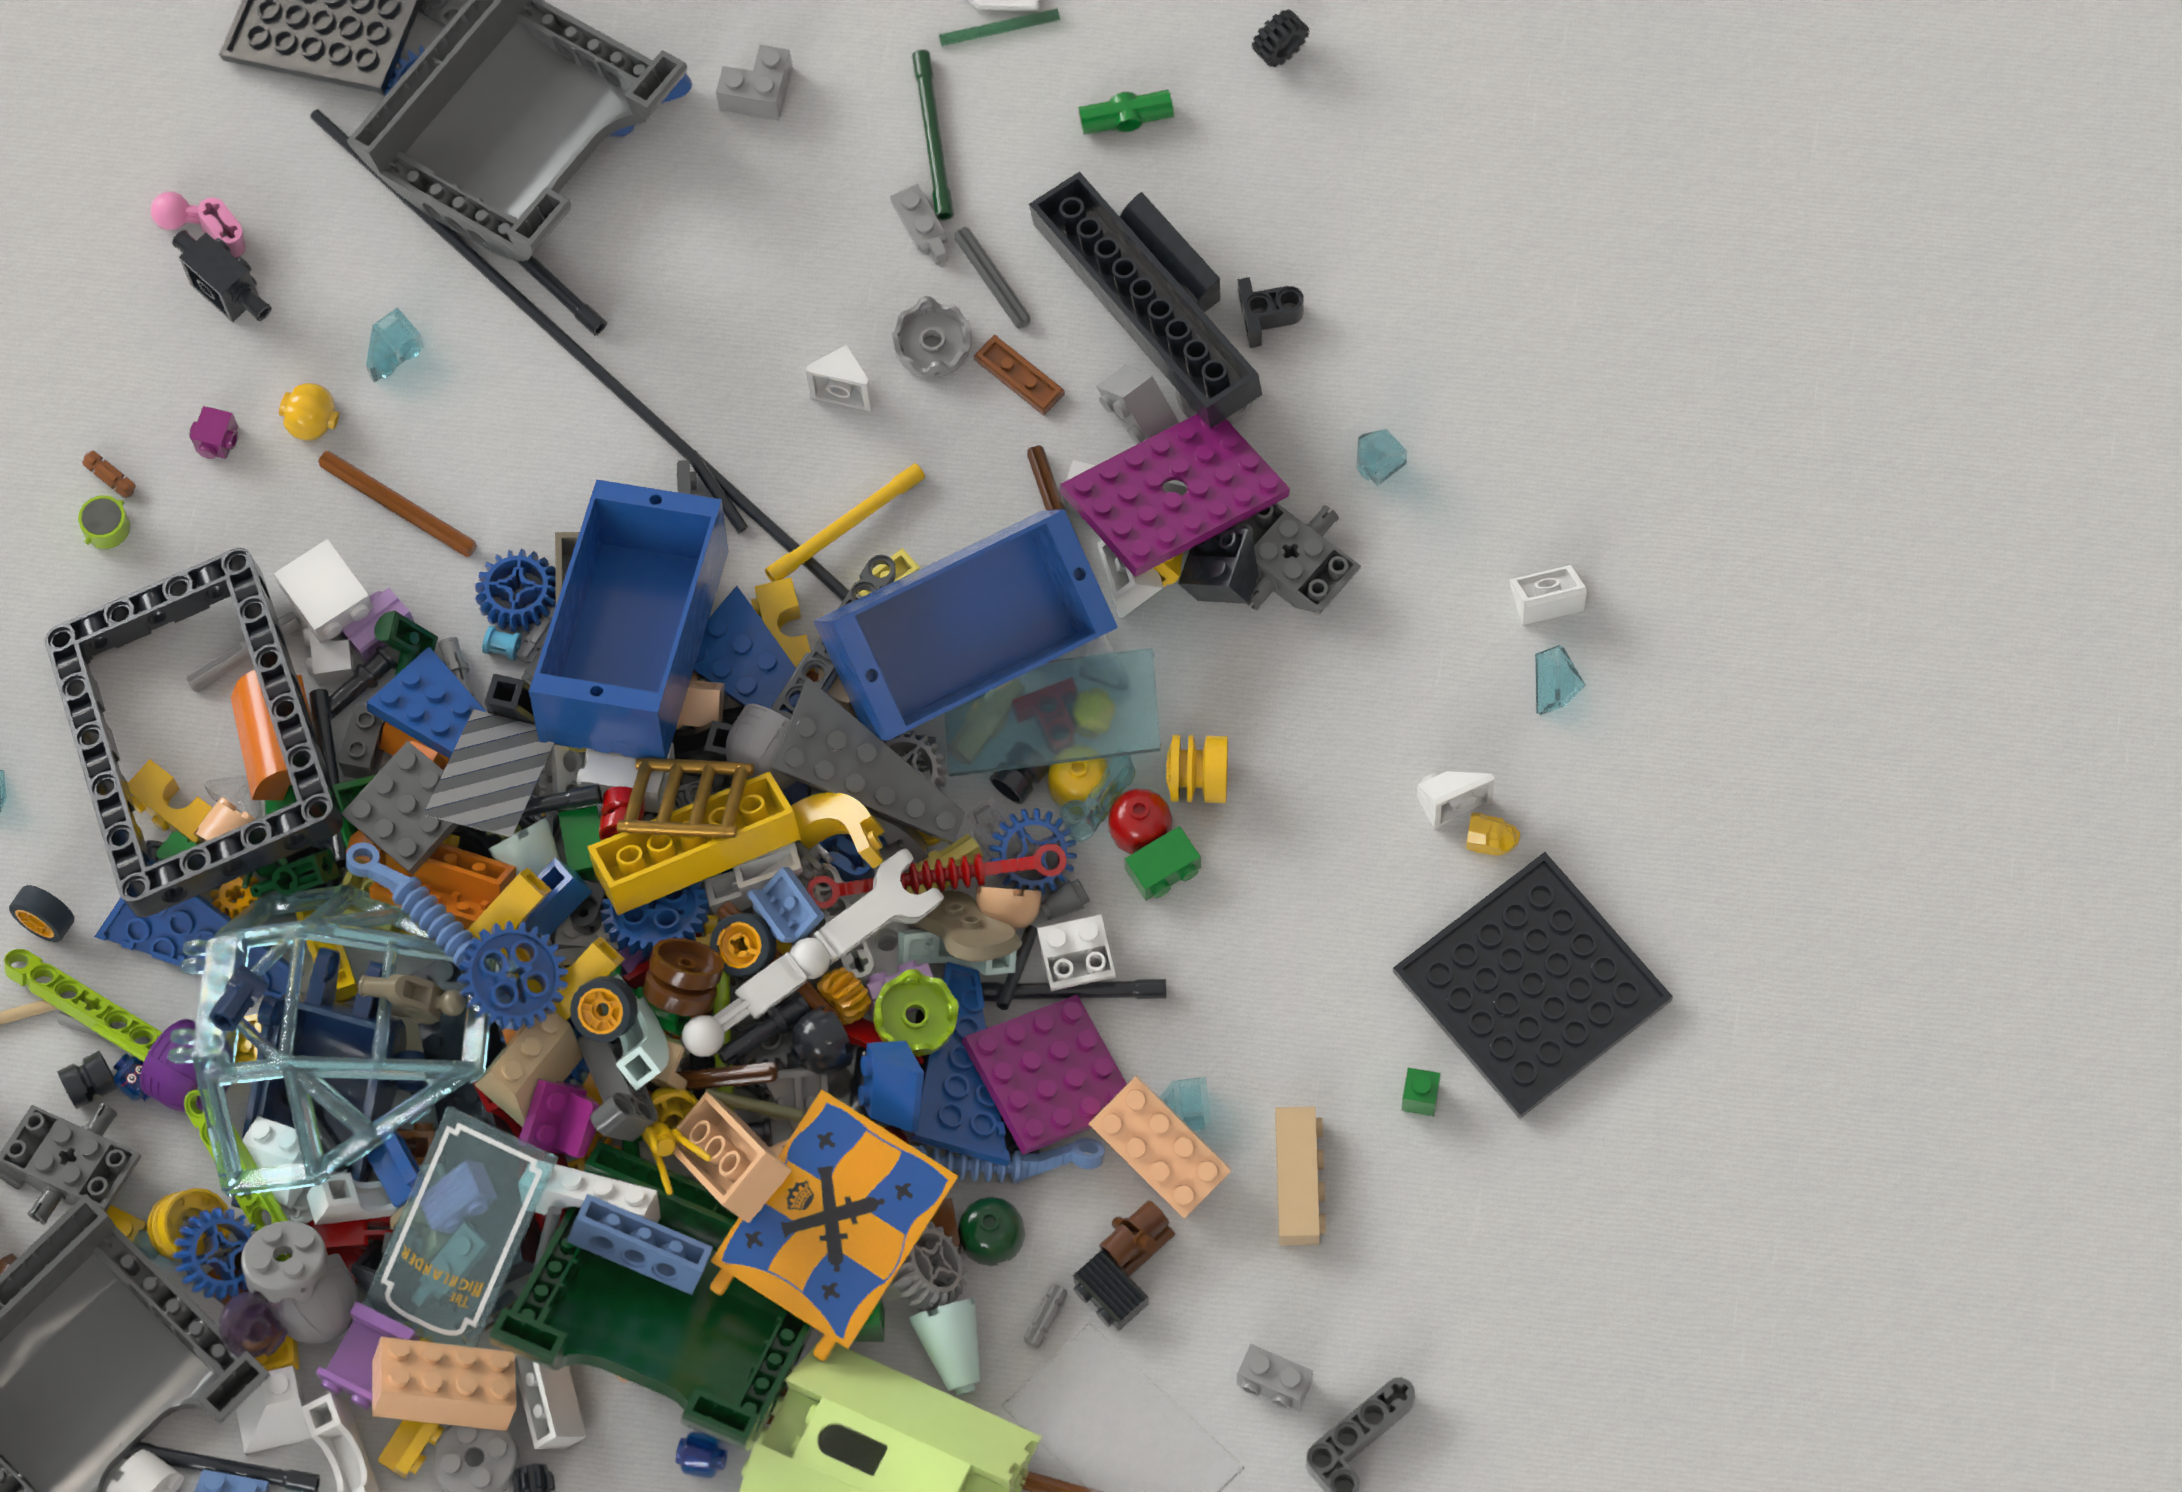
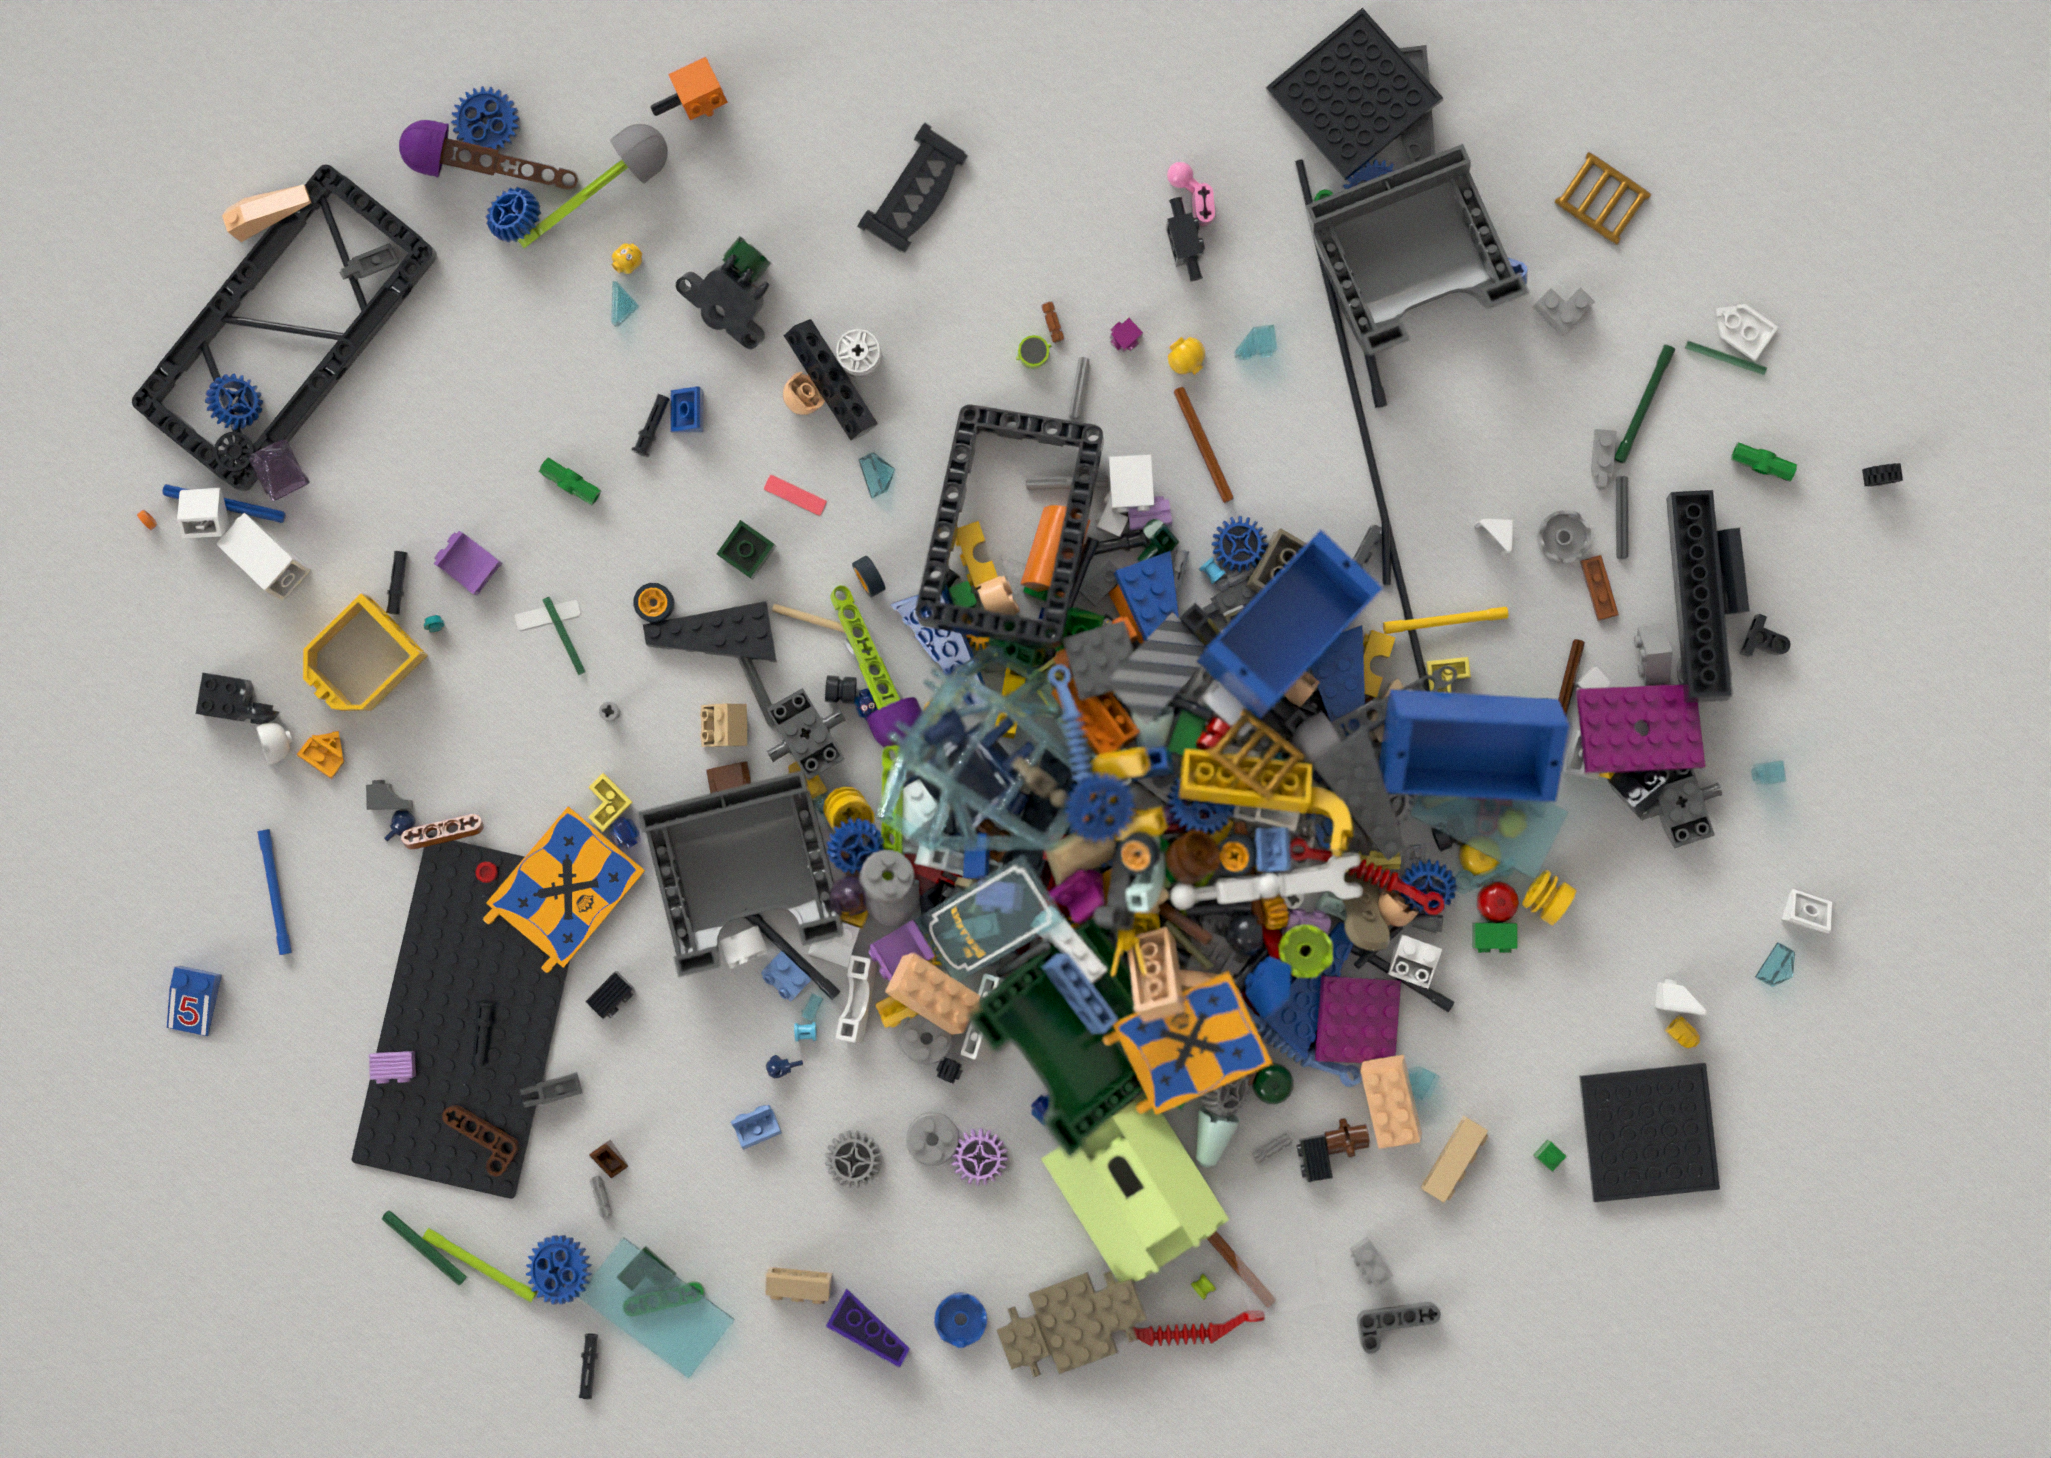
camera: 30 degrees right, 20 degrees up
(189, 526) = (1079, 387): none -> light grey axle

